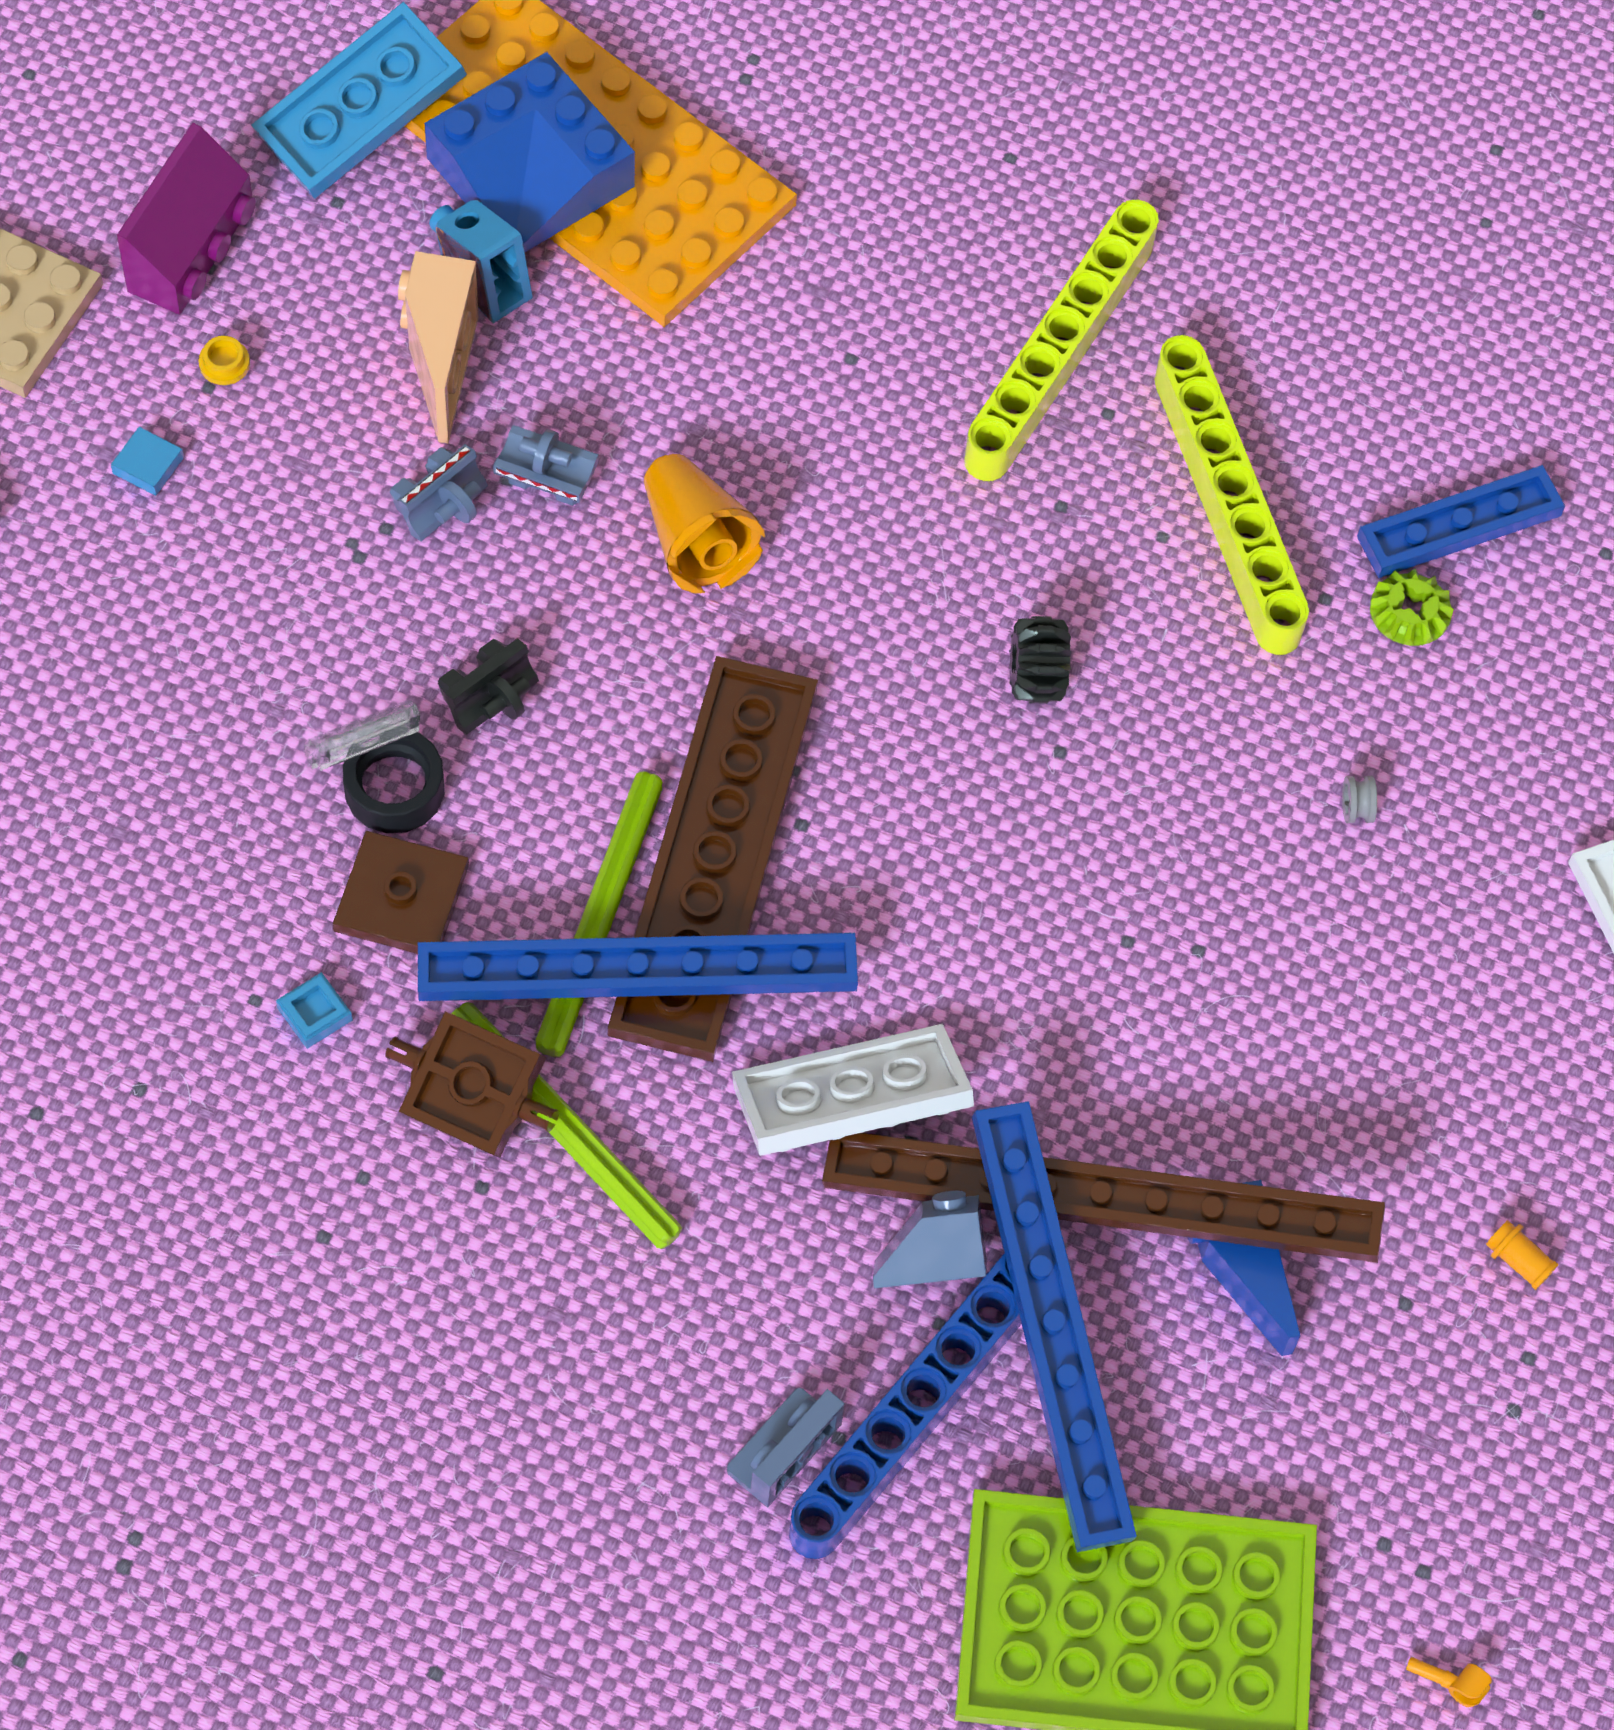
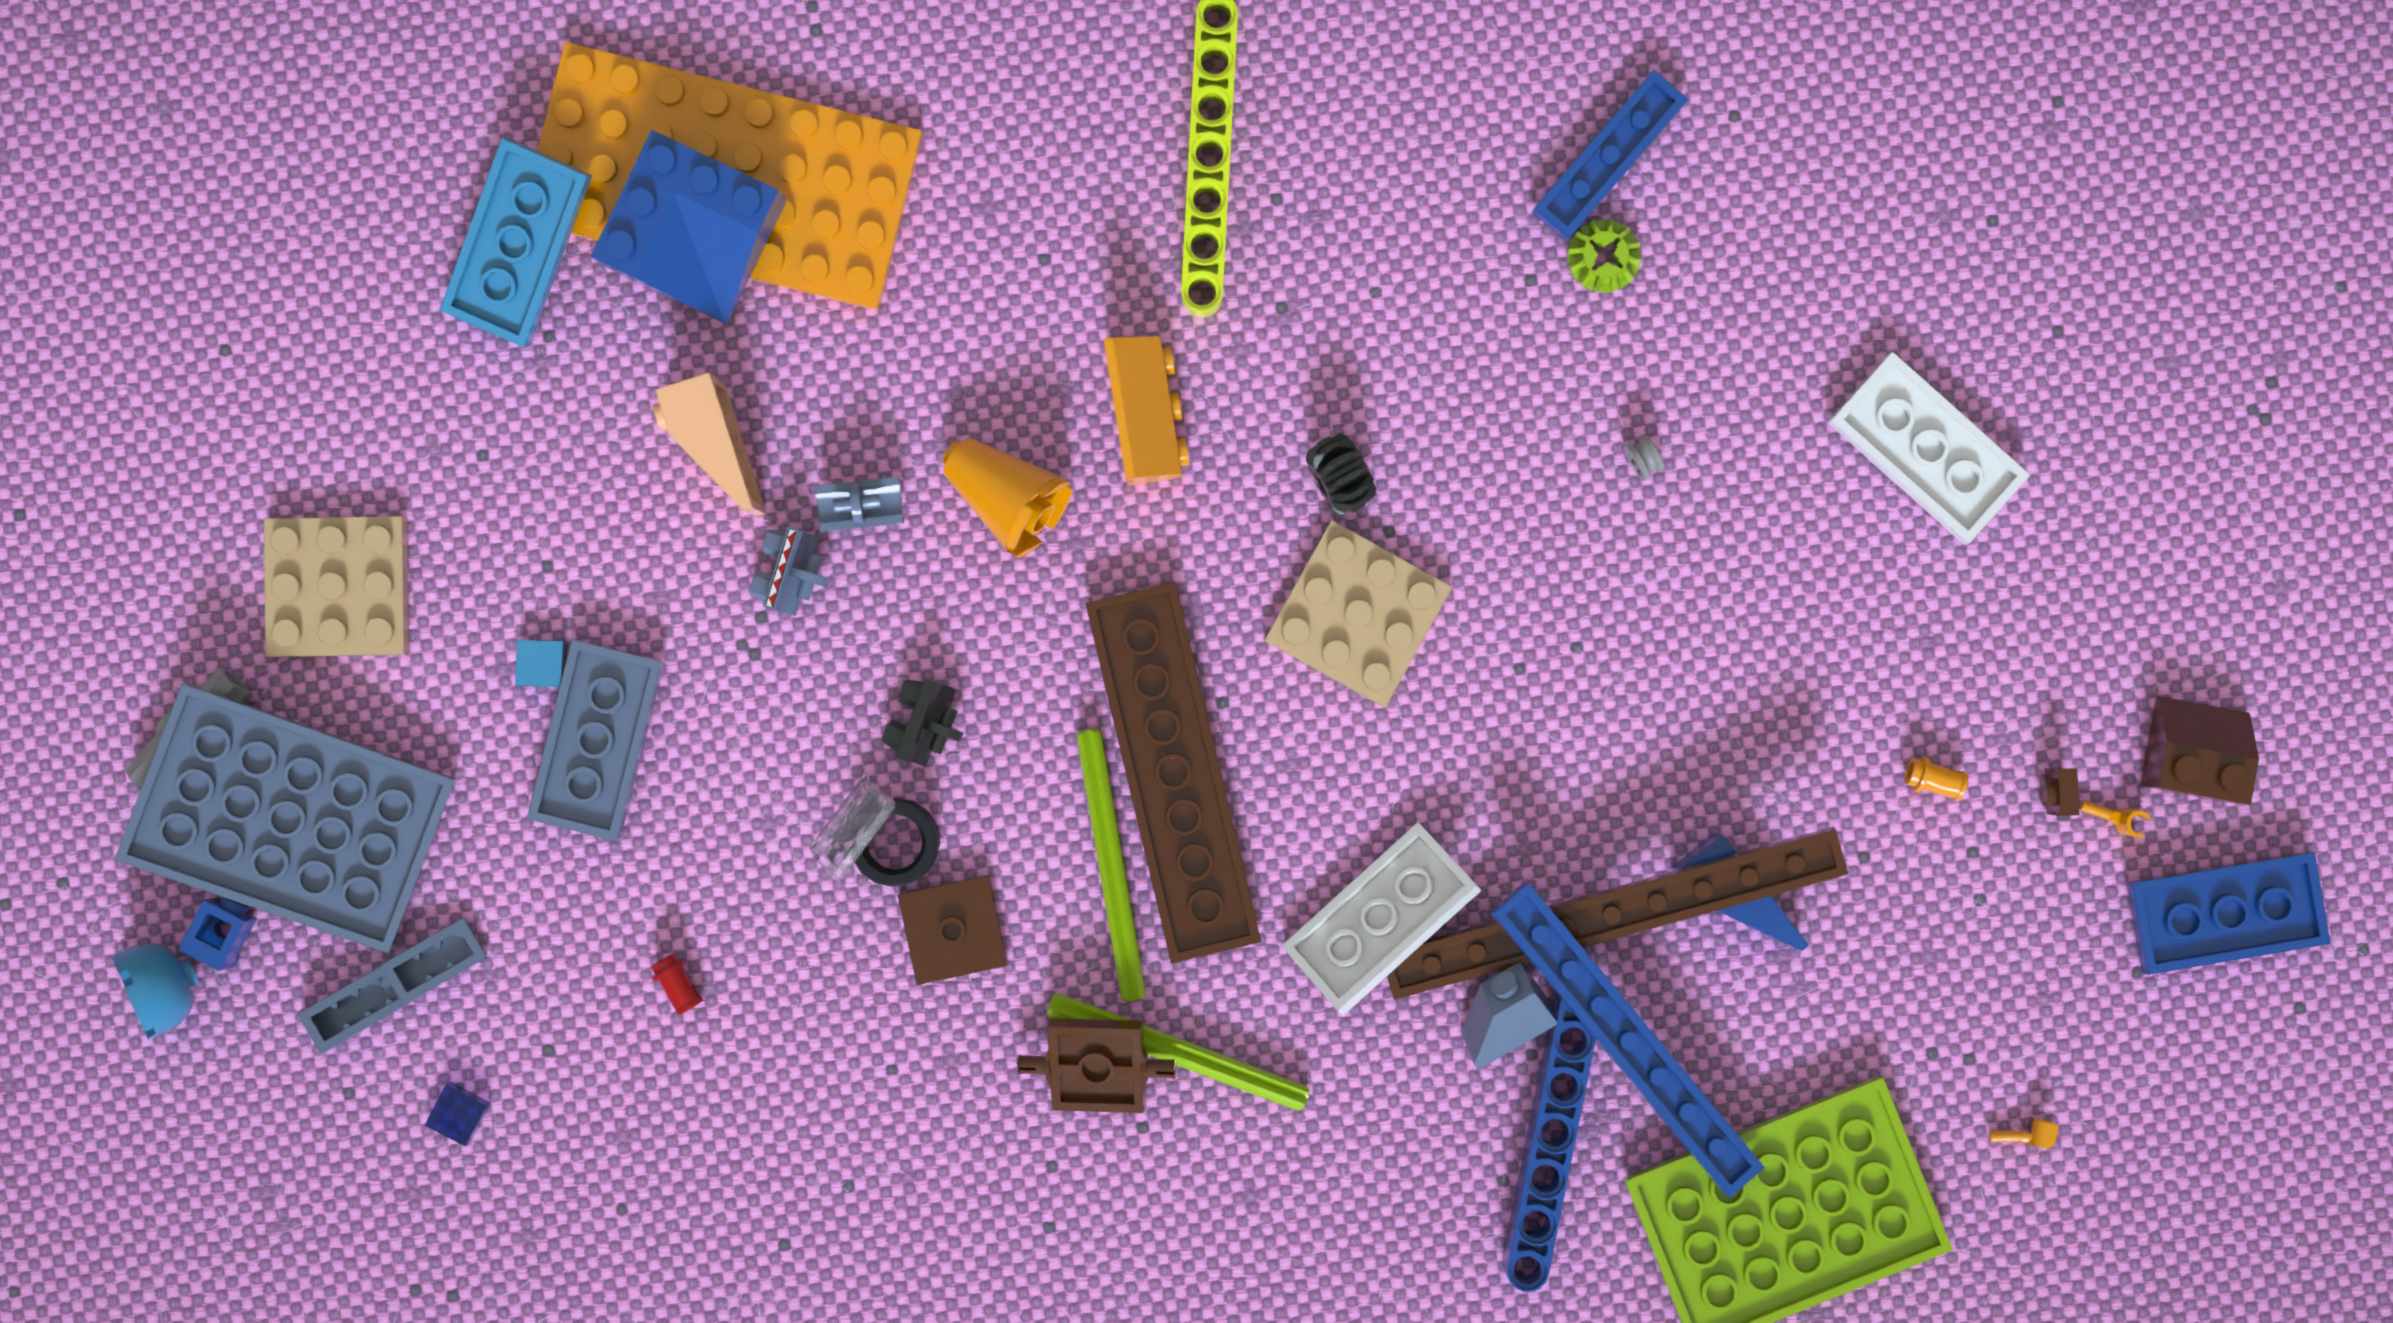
camera: 25 degrees left, 25 degrees up
(91, 802) = (676, 983): none -> red pin
(156, 548) = (595, 740): none -> sand blue plate
(184, 222) = (444, 439): magenta slope -> none
(224, 360) = (547, 541): yellow plate -> none
(314, 1010) = (941, 1058): dark azure tile -> none
(499, 254) = (699, 338): dark azure torso -> none
(637, 966) = (1170, 911): blue plate -> none
(786, 1443) = (1472, 1217): sand blue bracket -> none
(874, 512) = (1145, 409): none -> light orange slope
(986, 807) = (1358, 614): none -> tan plate
(1226, 513) = (1407, 209): neon yellow beam -> none

